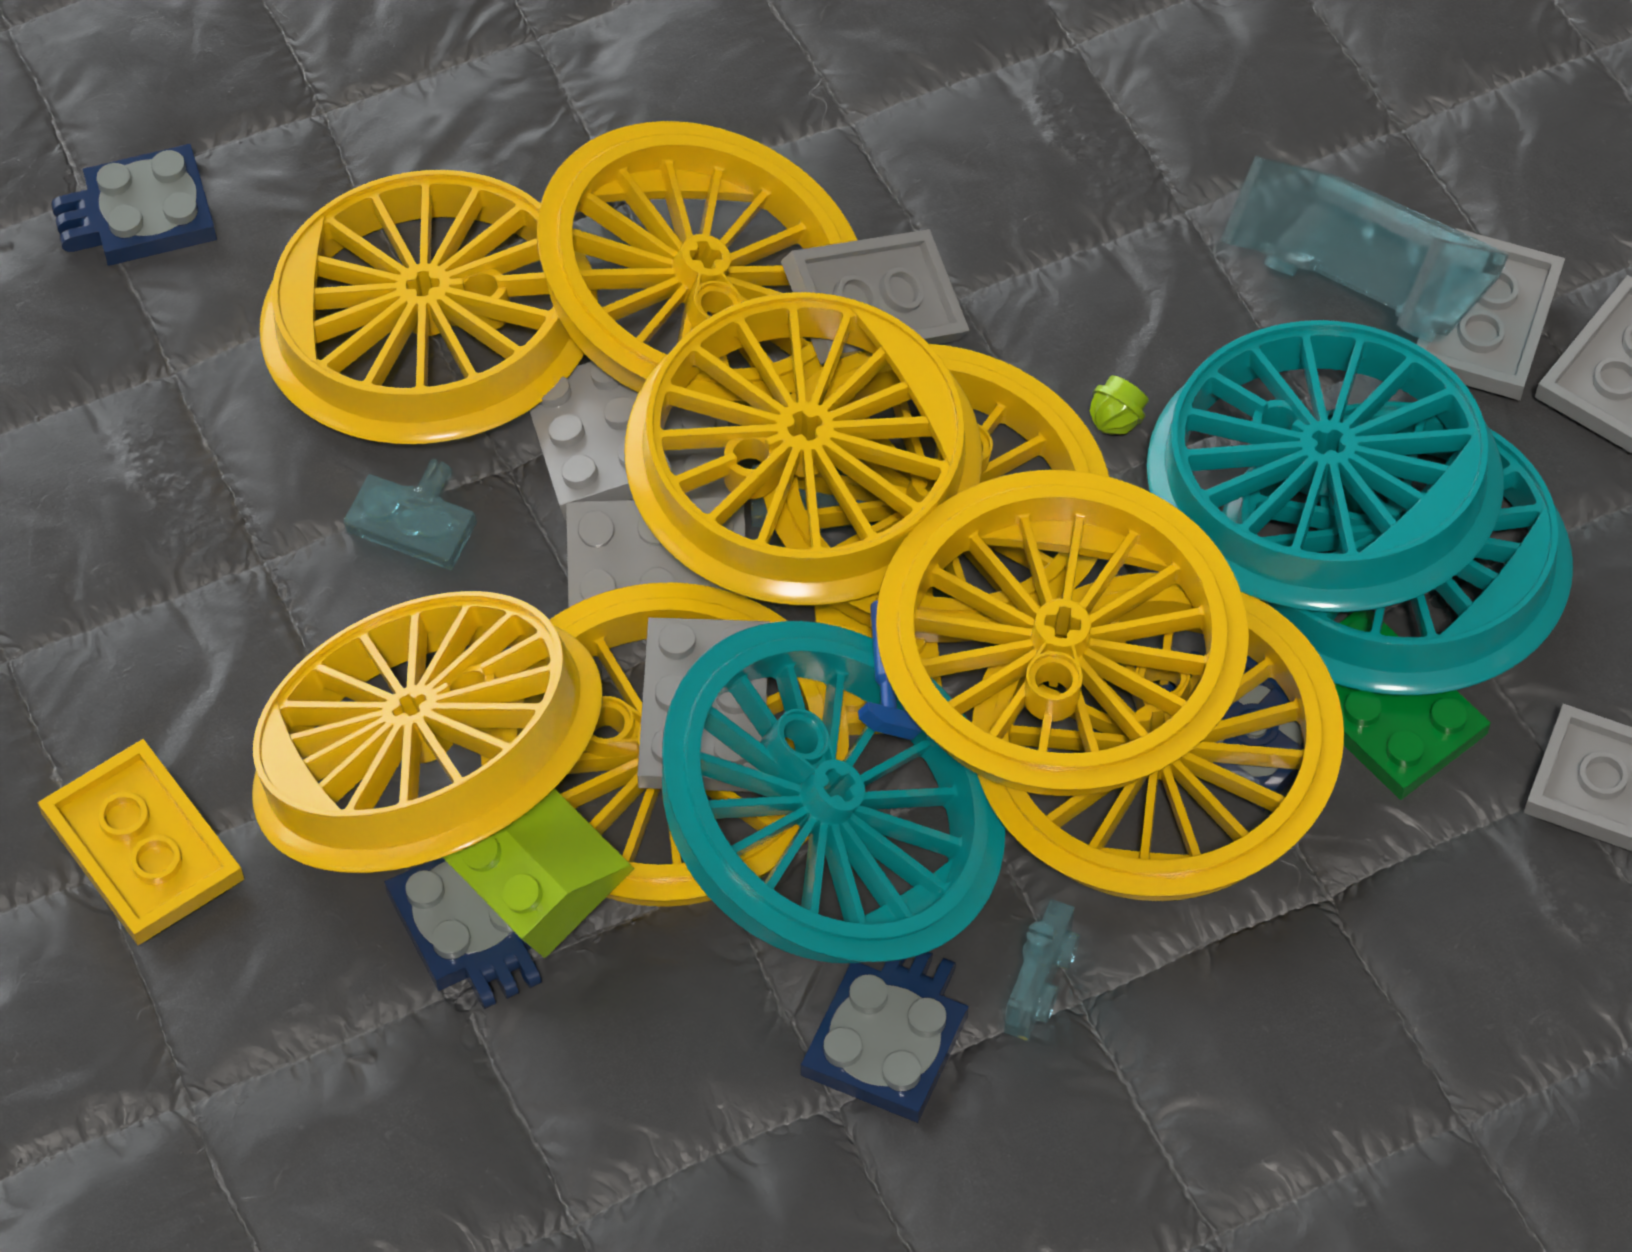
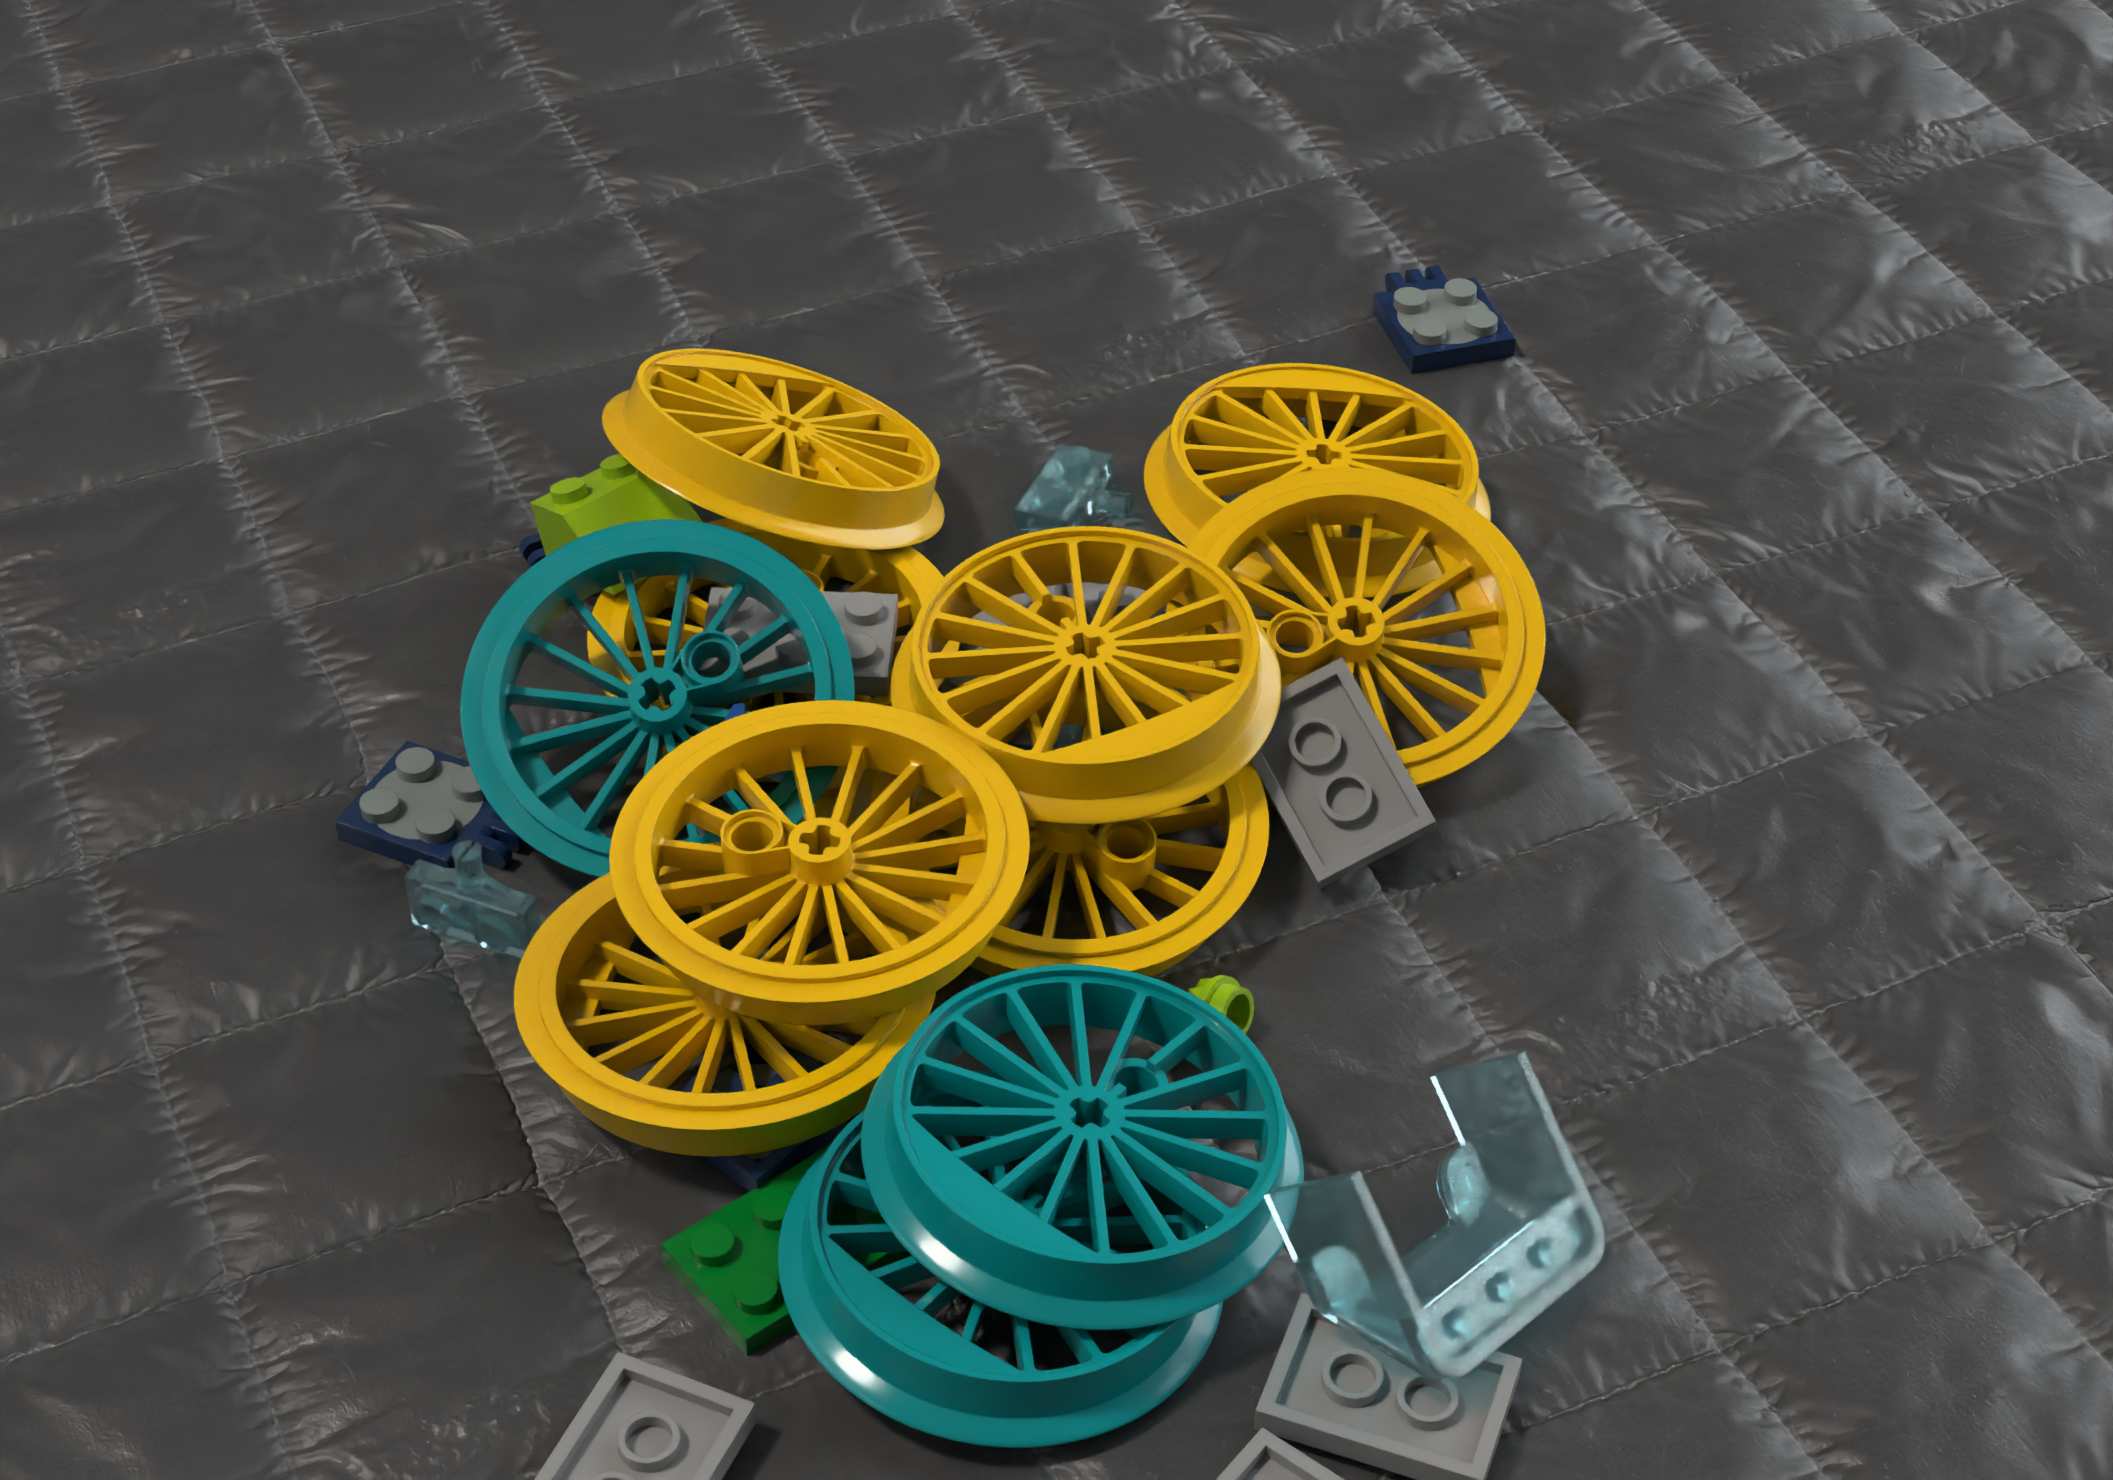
camera: 90 degrees right, 15 degrees down
(140, 841) = (738, 321): yellow plate -> none

